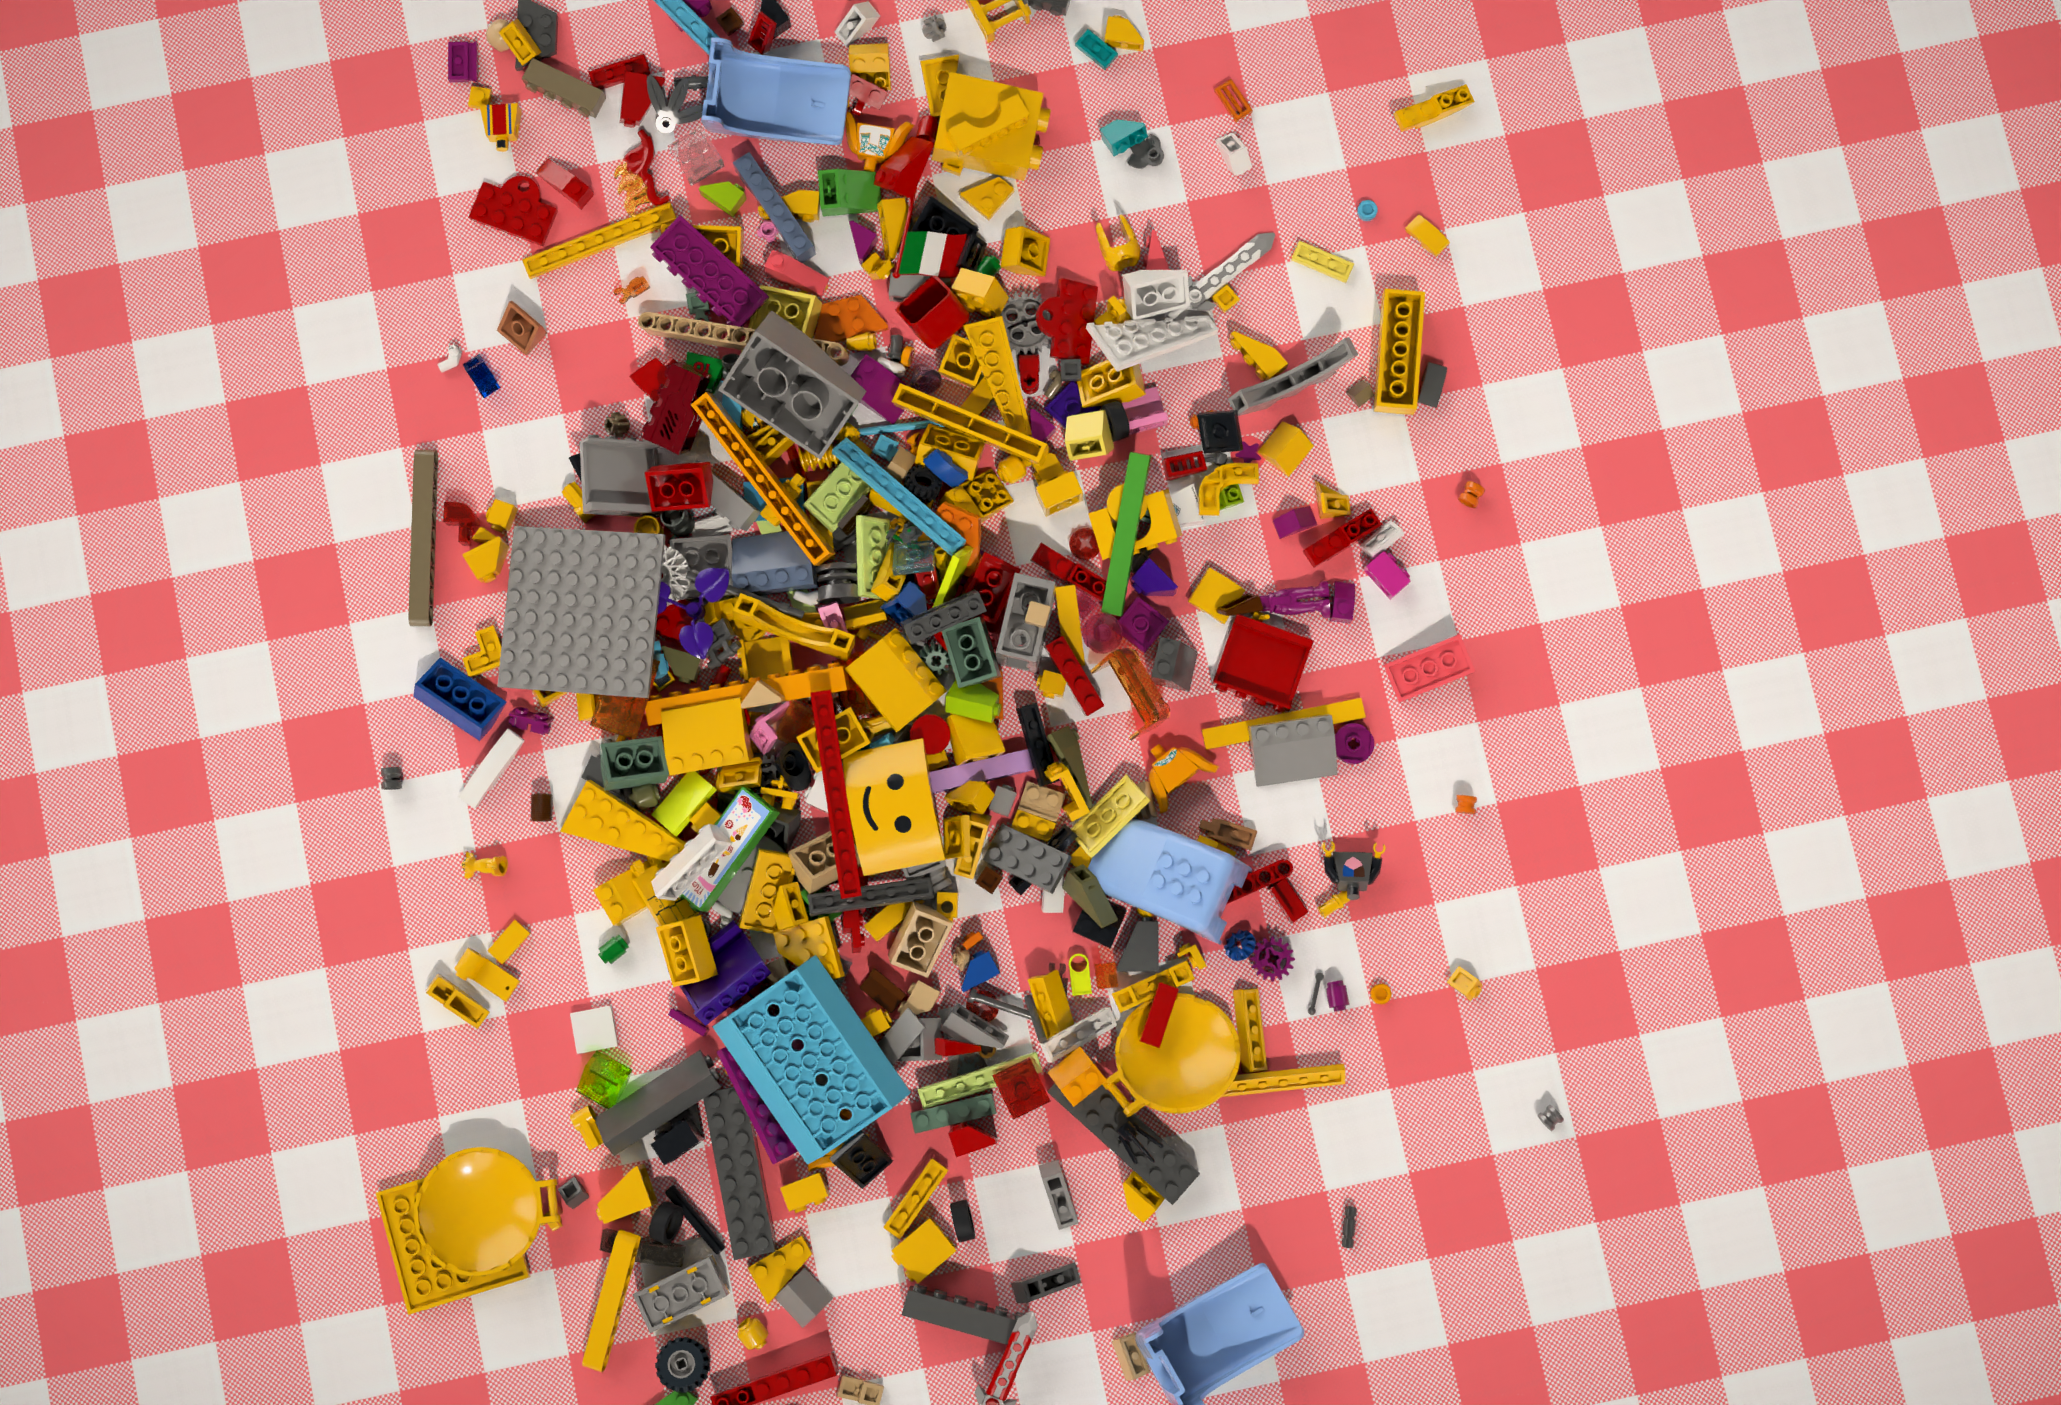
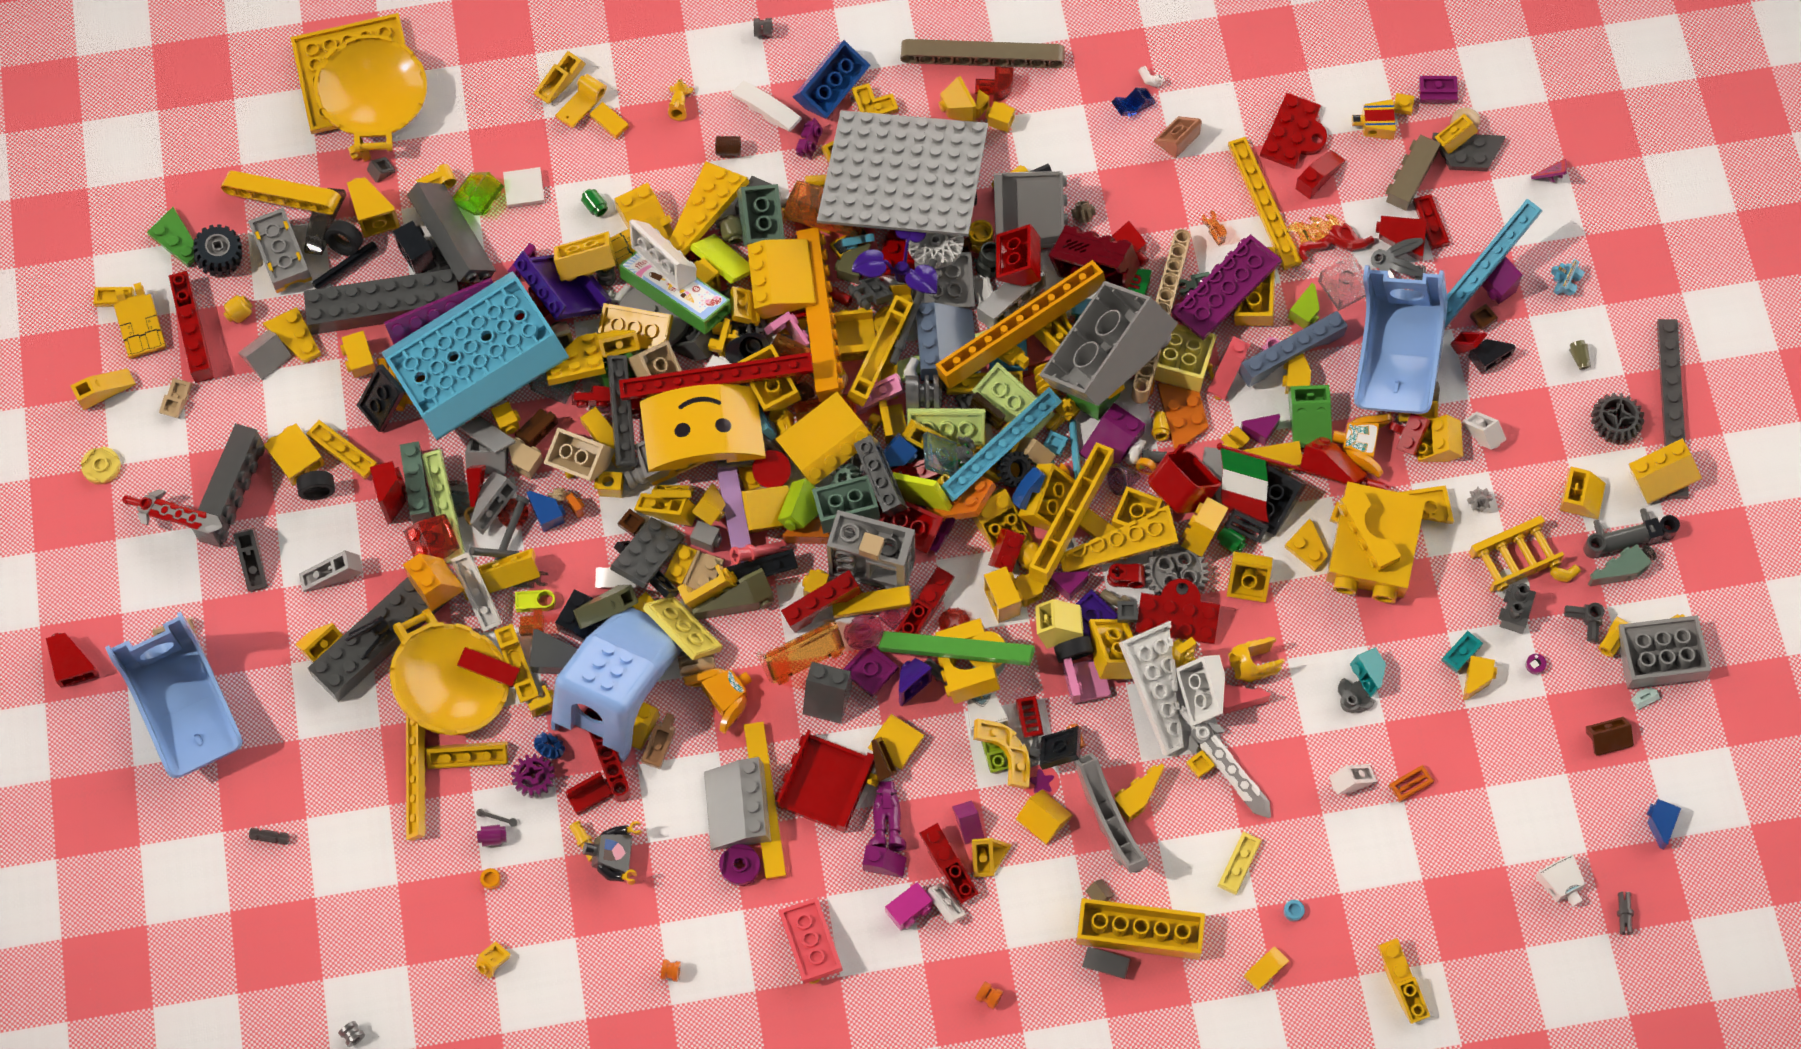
camera: 90 degrees right, 15 degrees down
(762, 695) = (815, 319): tan slope -> none
(1010, 491) = (1006, 549): none -> red brick
(1024, 749) = (751, 552): none -> coral pin

